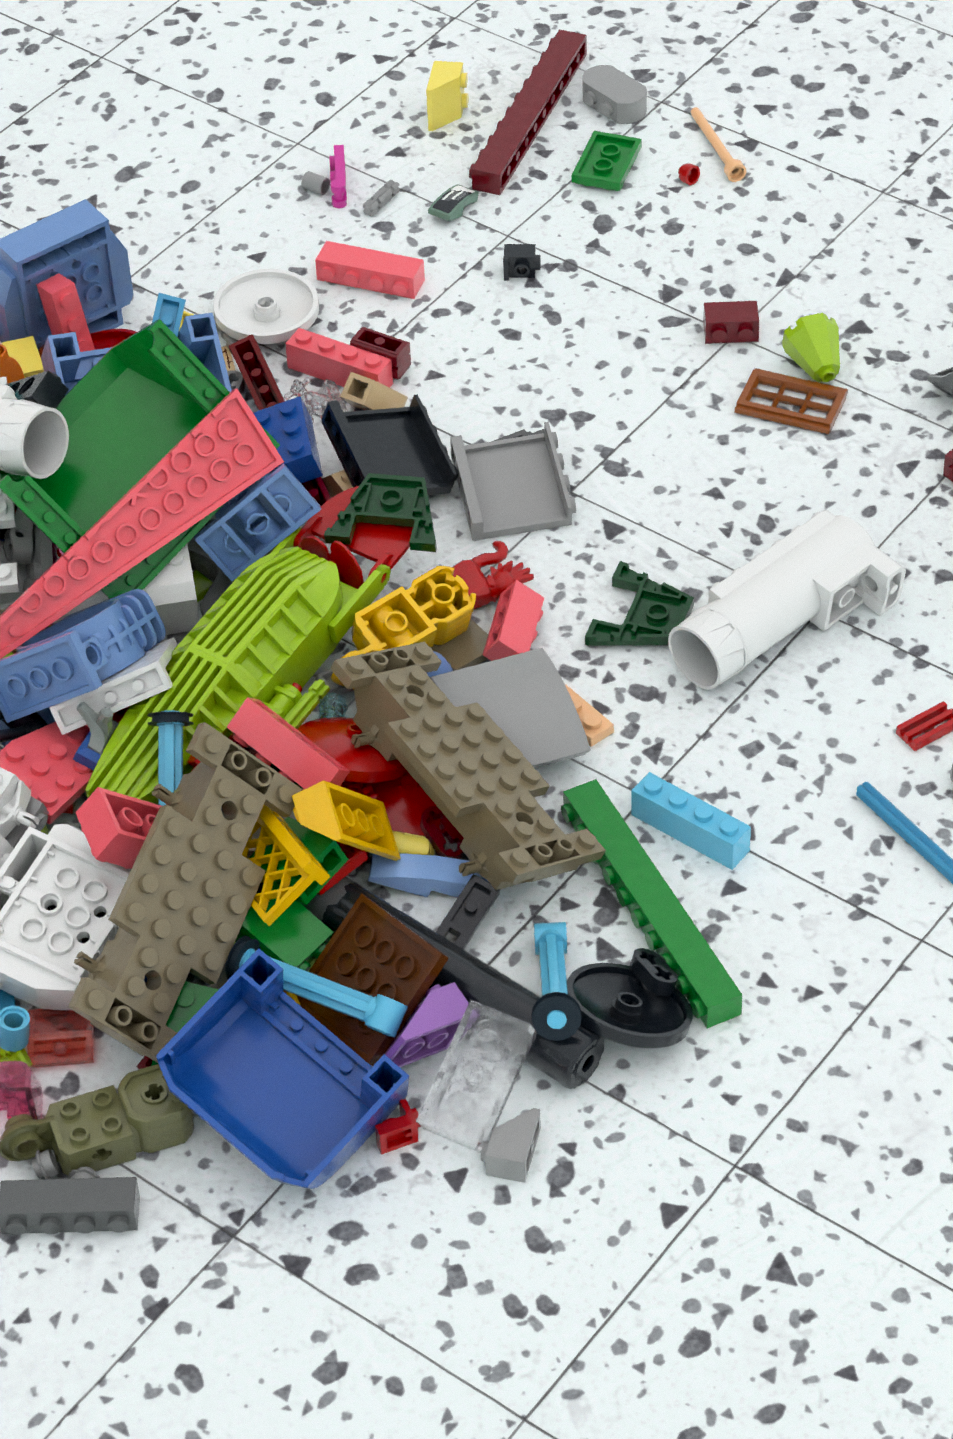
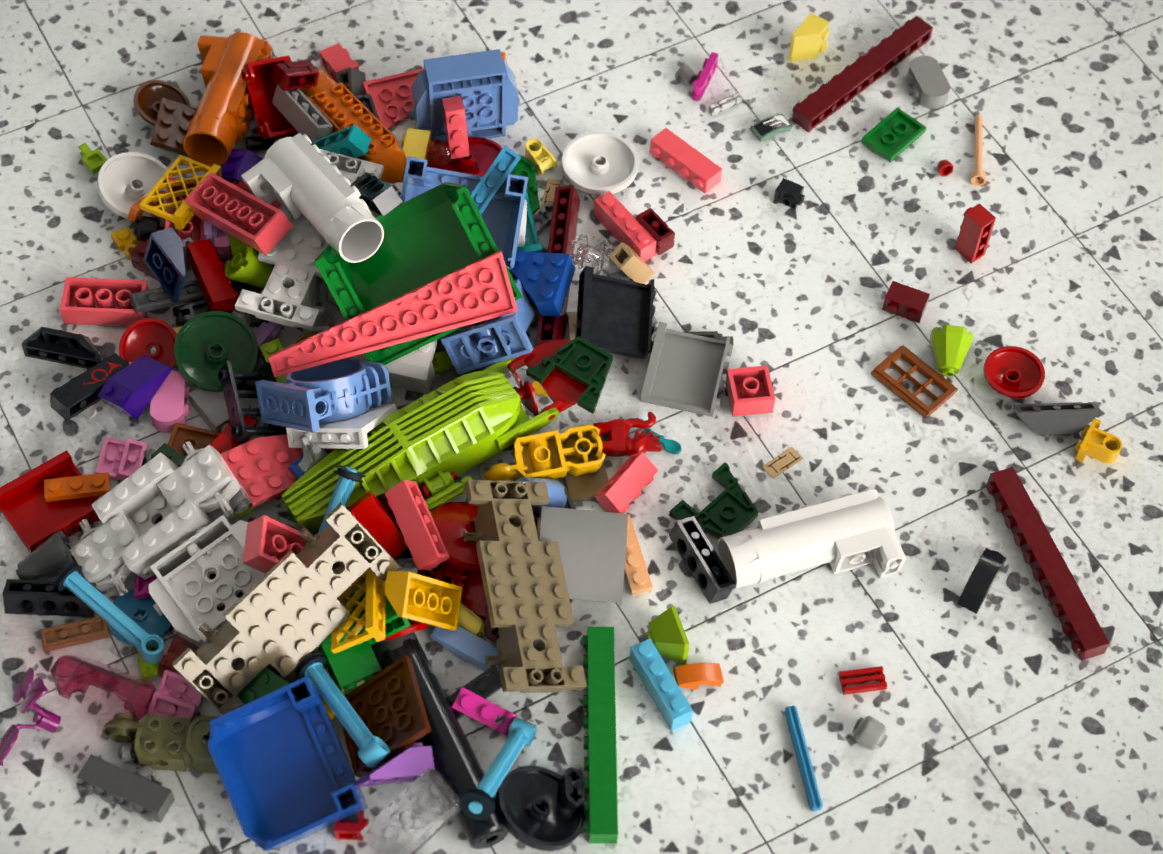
camera: 20 degrees right, 10 degrees up
(74, 1072) = (175, 697): none -> bright pink slope
(489, 933) = (483, 711): none -> dark pink plate
(541, 570) = (670, 445): none -> teal piece
(604, 475) = (750, 391): none -> coral brick
(658, 670) = (702, 559): none -> black brick
(673, 759) = (669, 636): none -> lime slope
(687, 540) = (782, 462): none -> tan sticker
(729, 792) = (692, 675): none -> orange slope
(772, 218) = (975, 233): none -> red brick
(905, 345) = (1015, 364): none -> red dish

